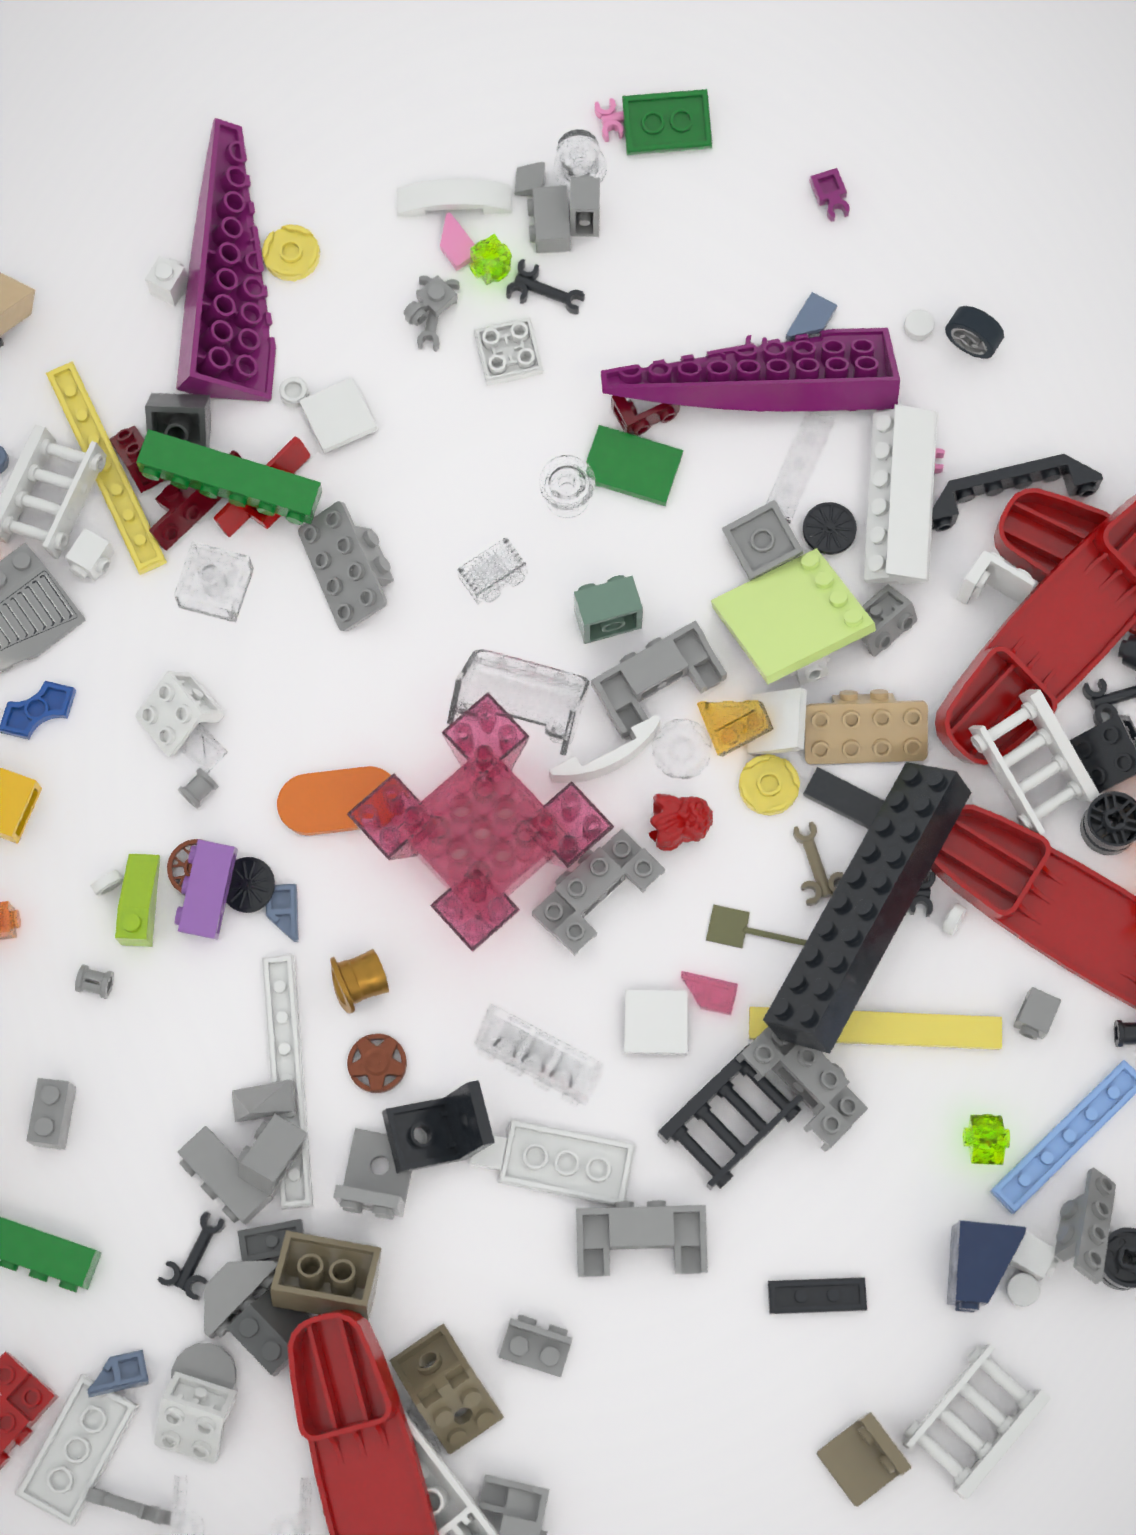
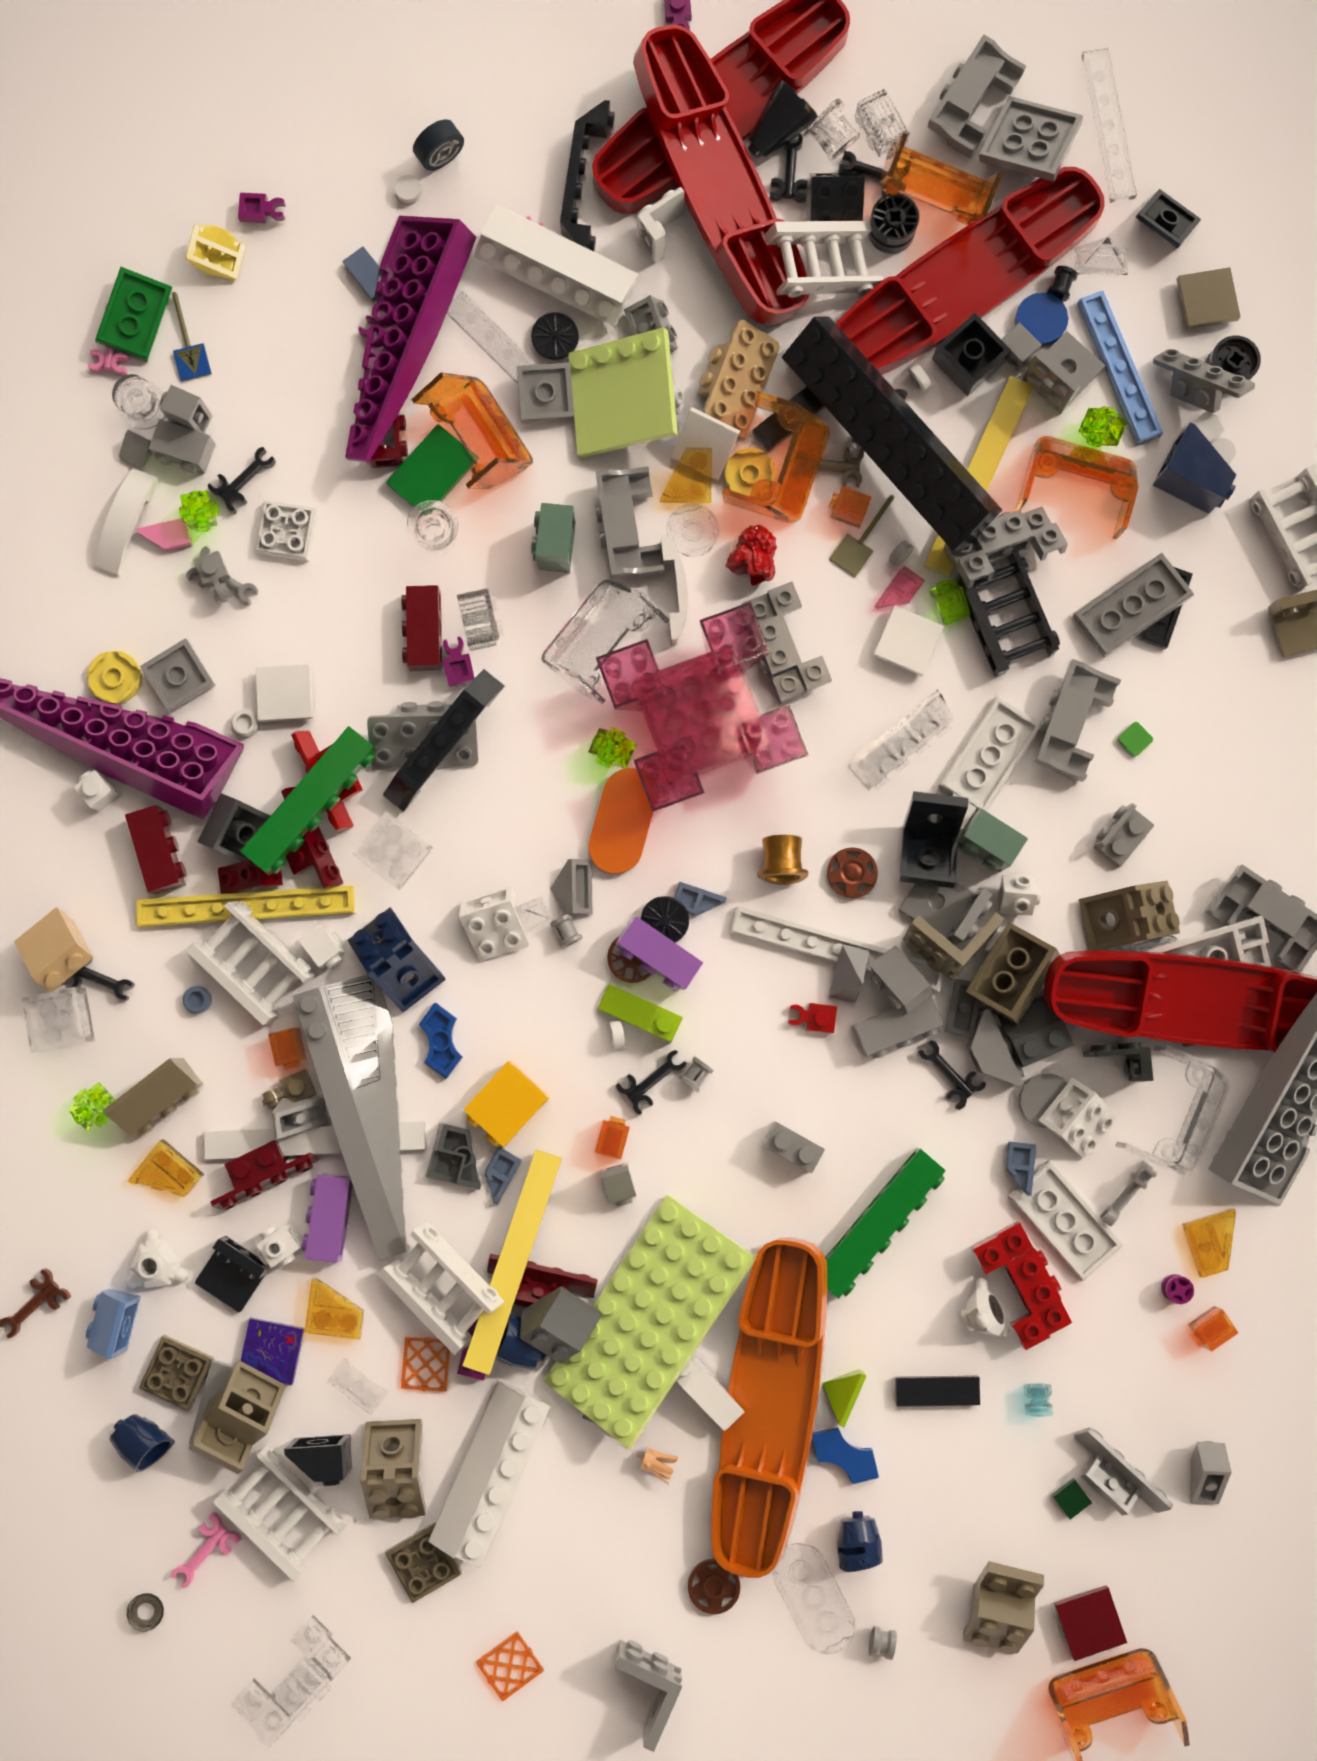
camera: 70 degrees left, 10 degrees up
(55, 928) = (635, 1093): none -> black bar
(102, 620) = (394, 959): none -> dark blue bracket
(129, 358) = (156, 849): none -> dark red brick
(204, 1088) = (818, 1017): none -> red plate
(248, 780) = (574, 886): none -> light grey slope
(277, 1456) = (1138, 1062): none -> pearl dark grey bracket
(315, 308) = (177, 675): none -> light grey plate
(326, 1214) = (940, 952): none -> dark tan bracket
(350, 580) = (442, 739): none -> black slope
(409, 755) = (612, 748): none -> clear neon green brick
(419, 1251) = (1018, 895): none -> white brick
(435, 571) = (458, 666): none -> magenta plate
(460, 520) = (422, 628): none -> dark red brick
(465, 1194) = (991, 841): none -> sand green brick
(647, 195) = (191, 360): none -> piece
(651, 1319) = (1135, 739): none -> bright green piece
(697, 493) = (480, 426): none -> clear orange windscreen
(718, 1049) = (950, 601): none -> clear neon green bracket
(749, 976) = (901, 553): none -> light grey tile
(766, 169) = (215, 251): none -> light yellow slope
(777, 901) = (849, 506): none -> clear orange brick
(794, 826) = (789, 495): none -> clear orange windscreen
(800, 1255) = (1133, 605): none -> light grey tile
(945, 1177) = (1054, 454): none -> clear orange windscreen
(1002, 962) = (971, 354): none -> black brick
(1014, 1068) = (1054, 380): none -> light grey bracket
(1083, 1028) = (1043, 317): none -> blue tile

